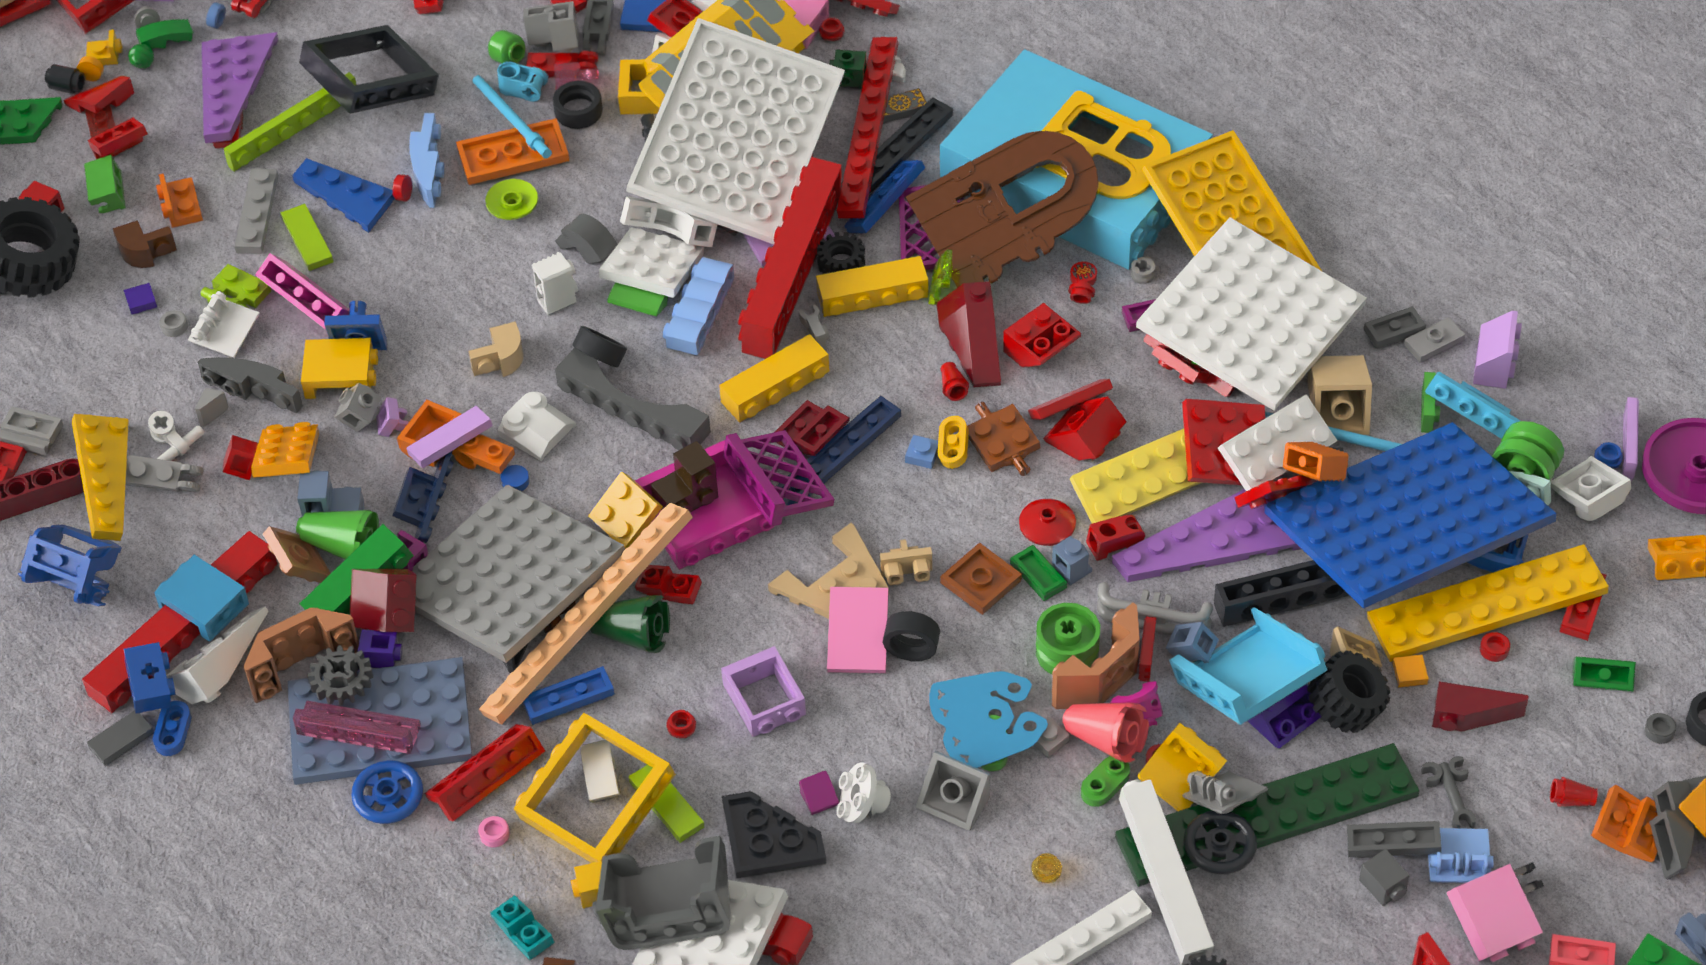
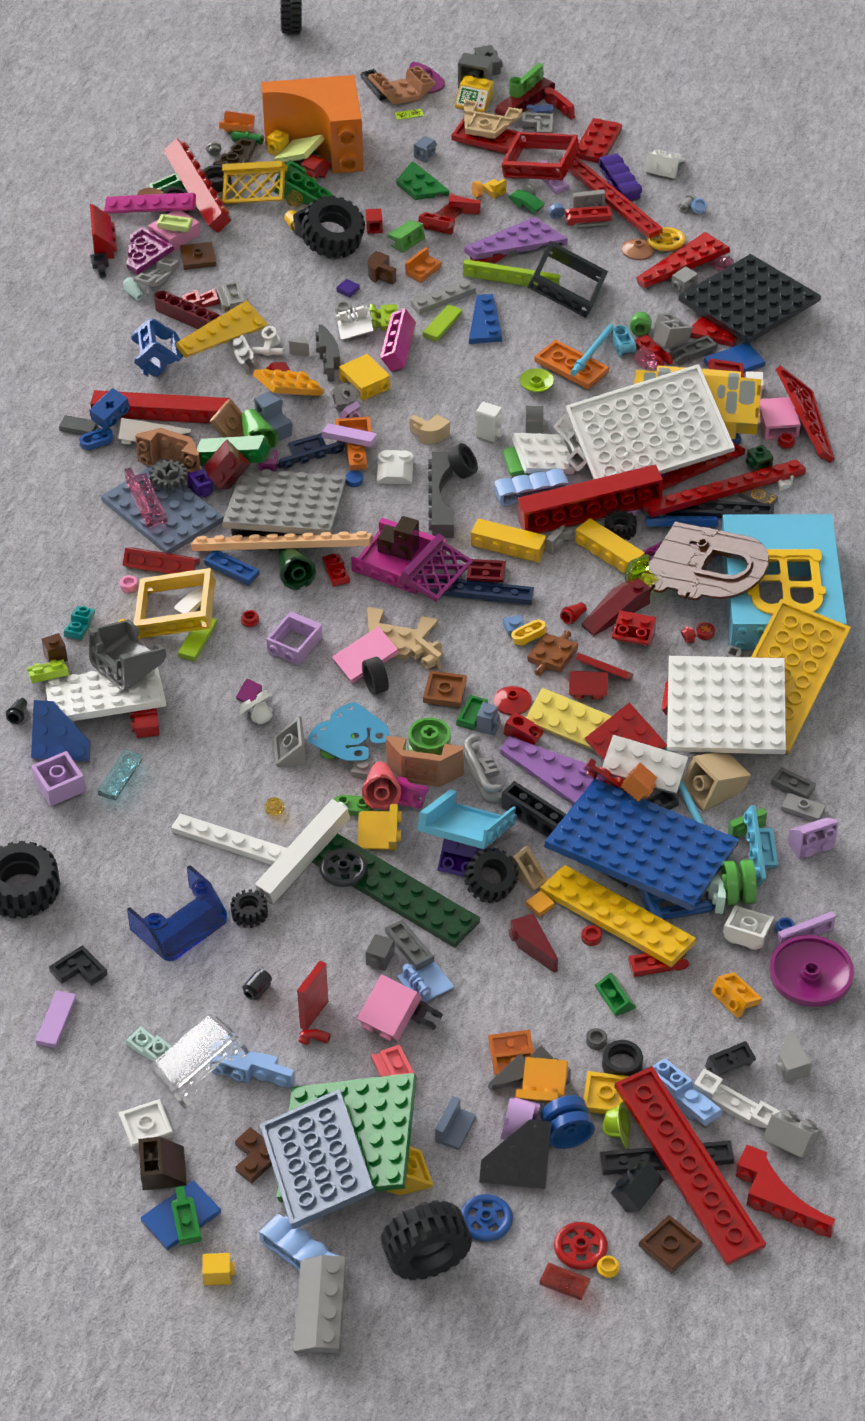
camera: 55 degrees right, 5 degrees down
(64, 79) = (461, 184): black brick -> none
(141, 56) = (502, 201): green plate -> none
(203, 596) = (175, 404): dark azure panel -> none
(357, 326) = (391, 366): blue tile -> none
(390, 813) = (120, 532): blue plate -> none
(402, 187) = (506, 337): red tile -> none
(426, 160) = (532, 333): light blue slope -> none
(579, 118) = (626, 362): black tyre -> none
(625, 510) = (367, 522): yellow plate -> none
(768, 837) = (204, 685): black plate -> none
(1147, 649) = (454, 779): red tile -> none
(1192, 642) = (471, 794): sand blue brick -> none
(1221, 792) = (373, 851): light grey hinge -> none
(1448, 775) = (476, 952): dark grey bar -> none
(1572, 793) = (509, 1013): red cone -> none

